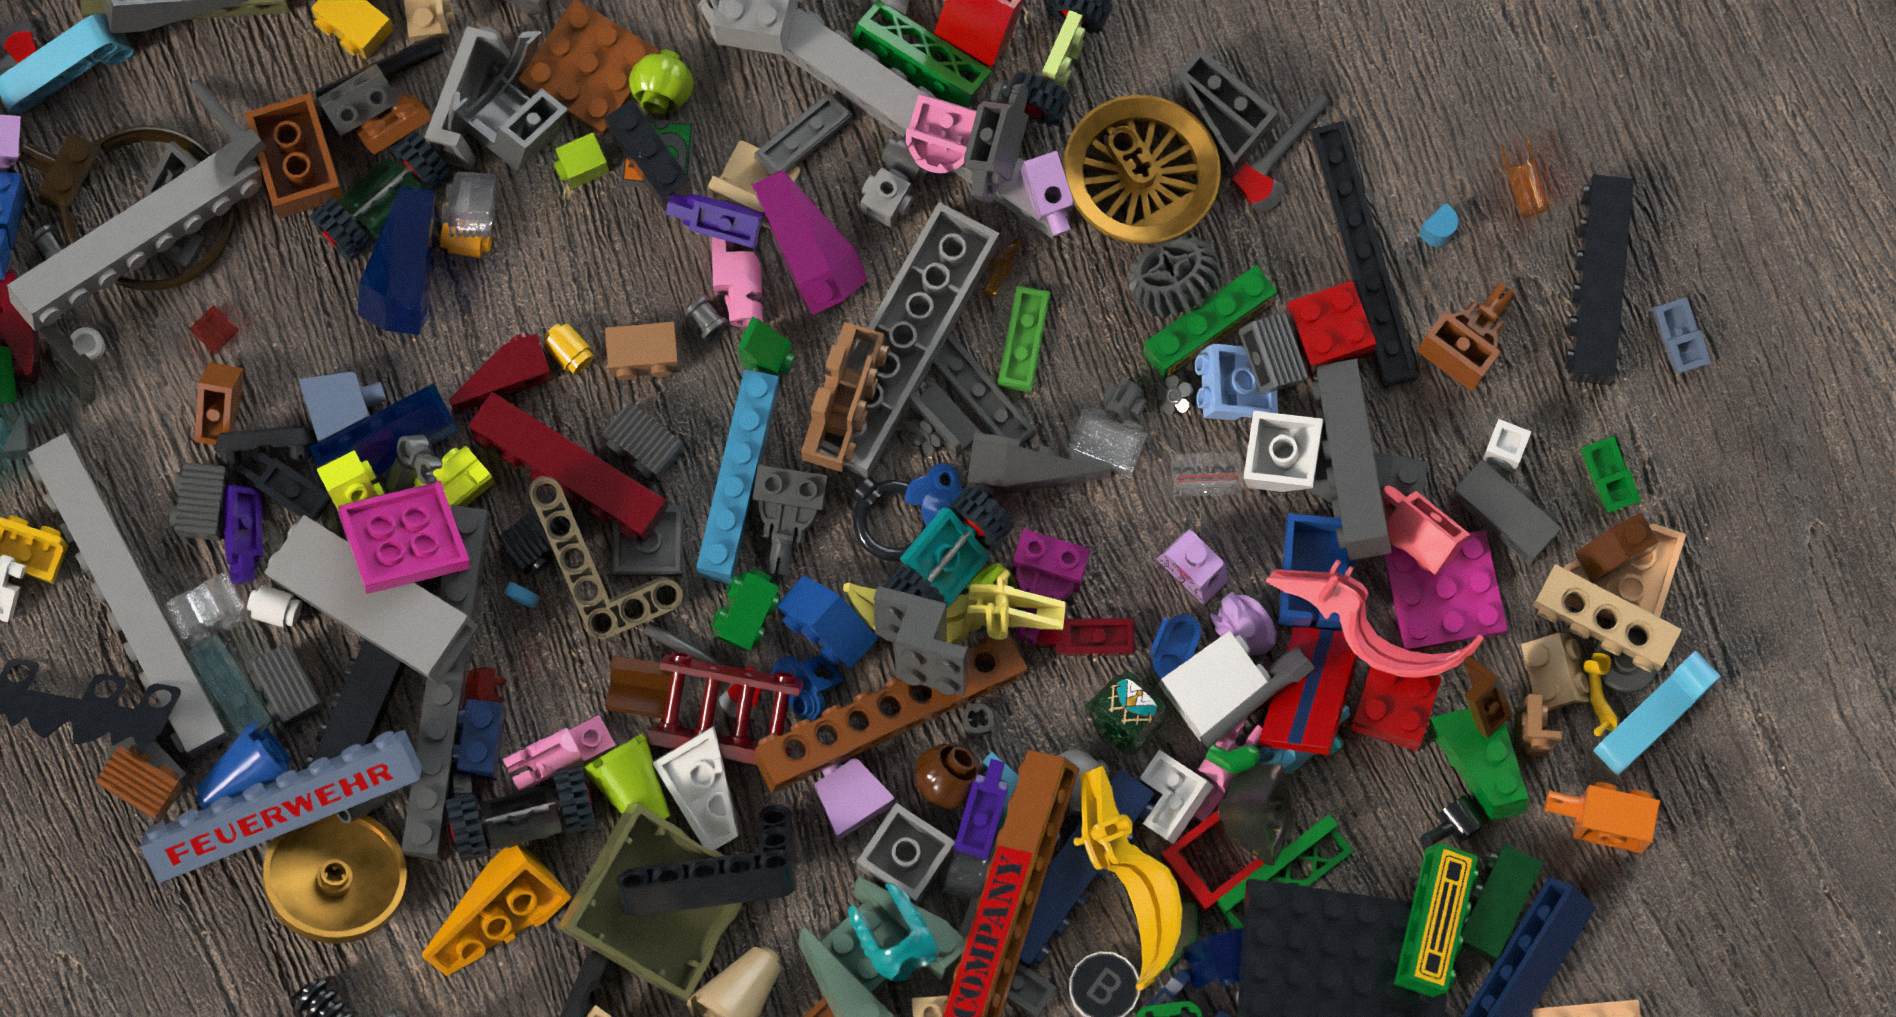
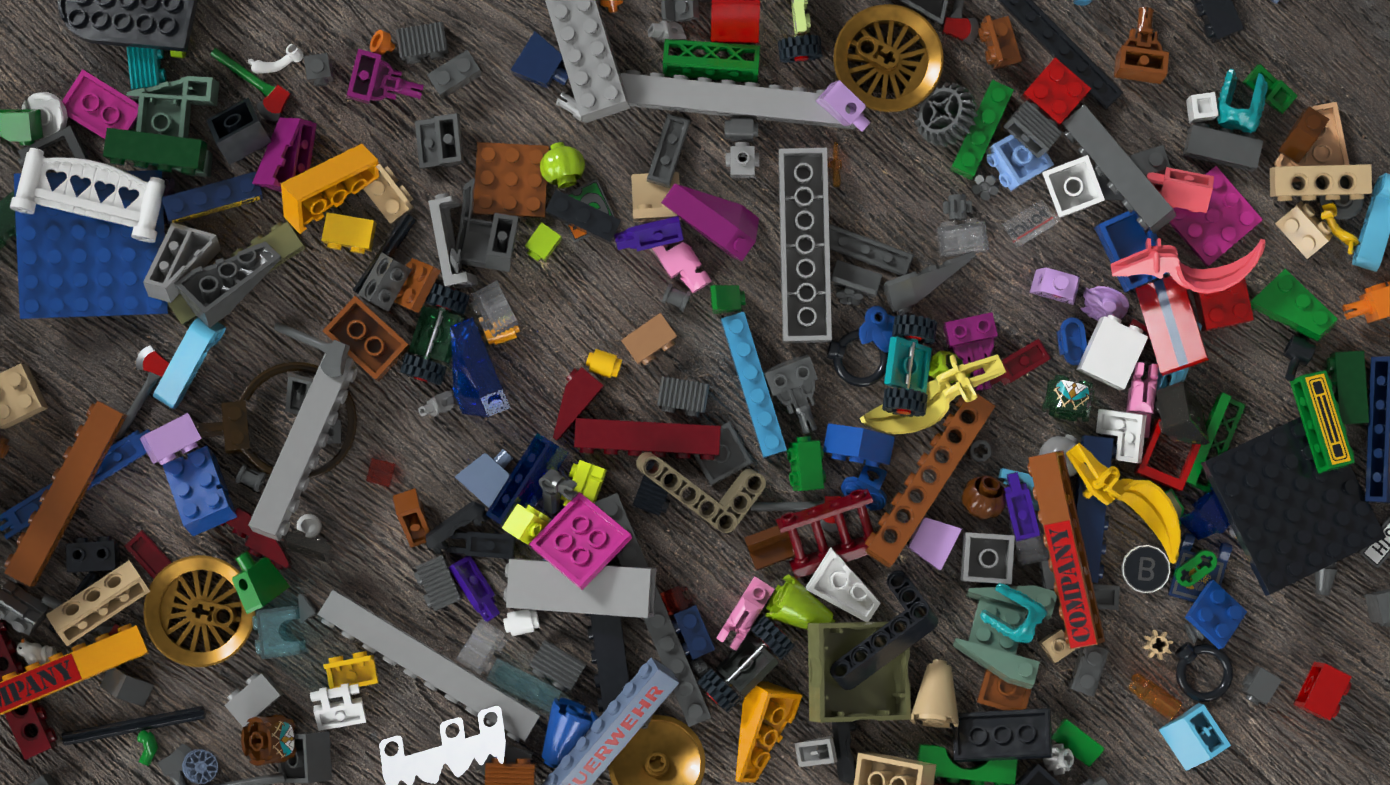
camera: 30 degrees left, 10 degrees up
(337, 285) = (438, 404): none -> light grey piece
(522, 595) = (666, 530): dark azure tile -> none
(546, 978) = (816, 752): none -> light grey slope
(842, 400) = (795, 303): medium nougat piece -> none
(921, 641) = (931, 436): dark grey bracket -> none
(939, 134) = (757, 104): bright pink slope -> none
(996, 139) = (793, 90): dark grey hinge -> none
(1024, 339) = (874, 201): bright green tile -> none
(1236, 760) = (1153, 394): green arm -> none
(1286, 669) = (1153, 319): dark grey piece -> none
(1297, 231) = (999, 42): none -> dark orange bracket
(1486, 698) = (1287, 274): reddish brown panel -> none
(1529, 722) = (1311, 273): medium nougat bracket -> none
(1549, 485) = (1242, 119): none -> teal piece

